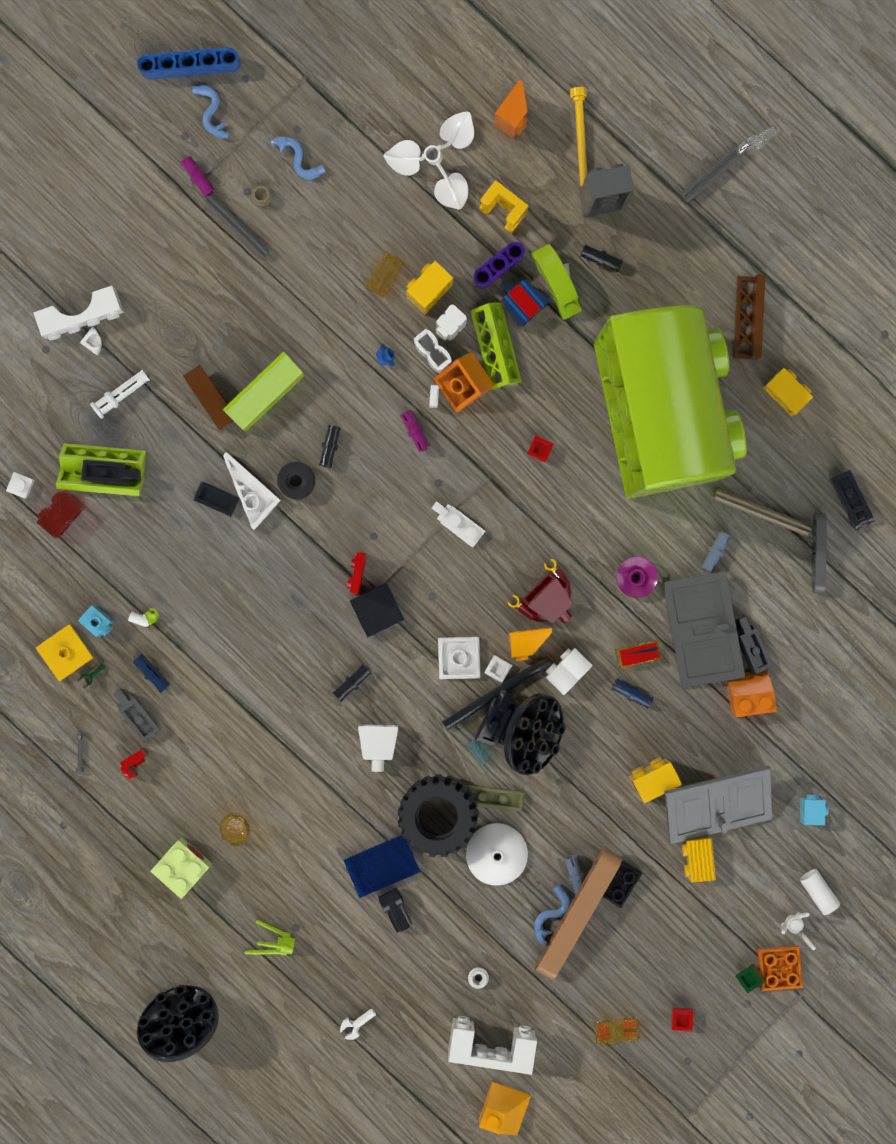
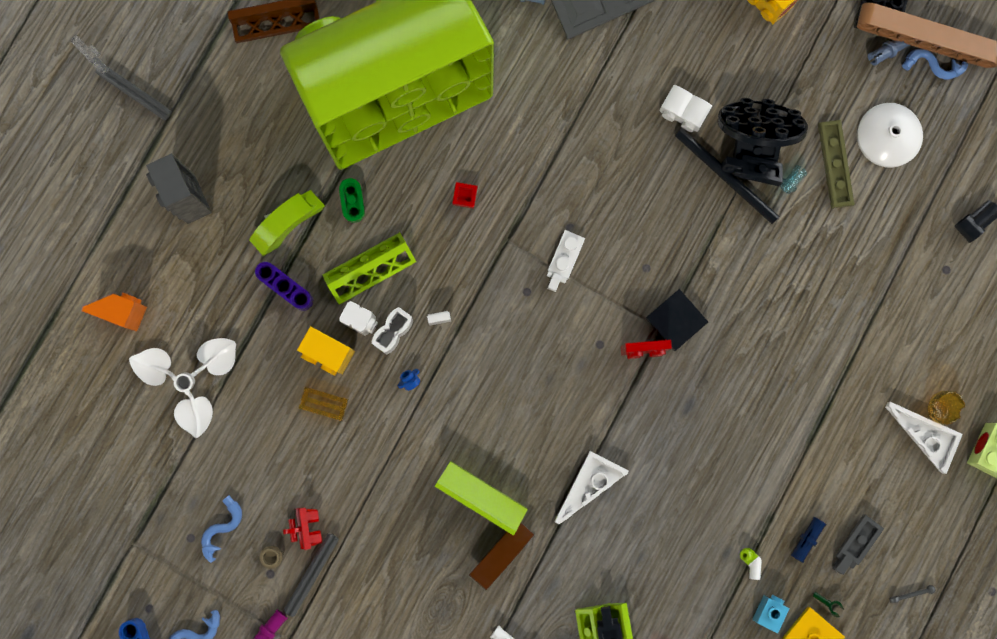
camera: 115 degrees left, 5 degrees down
(135, 759) = (903, 532): red bracket -> none
(211, 810) = (934, 439): none -> white wing
(216, 499) = (606, 519): black tile -> none
(269, 230) = (306, 538): none -> red hips
(290, 470) = (577, 439): black tyre -> none
(329, 446) = (519, 413): black pin -> none
(352, 683) = (759, 326): black pin -> none
(377, 743) = (813, 282): white torso -> none
(381, 865) = (936, 247): clear blue piece -> none
(415, 431) = (480, 328): magenta pin -> none
(430, 842) = (899, 194): black tyre -> none
(459, 657) = (701, 223): white tile -> none
(463, 382) = (416, 291): orange slope -> none
(498, 668) = (702, 181): white tile -> none
(508, 201) = (215, 291): yellow panel -> none
(522, 301) = (316, 252): torso -> none
(527, 642) = (666, 156): light orange slope -> none
(548, 598) = (617, 146): dark red torso -> none
(561, 345) = (352, 201): none -> green plate
(578, 95) = (85, 250): yellow piece -> none
(601, 258) = (250, 183): black pin -> none
(632, 693) = (689, 40): dark blue pin -> none
(638, 654) = (649, 44): slope -> none
(647, 580) = (571, 54): magenta dish -> none

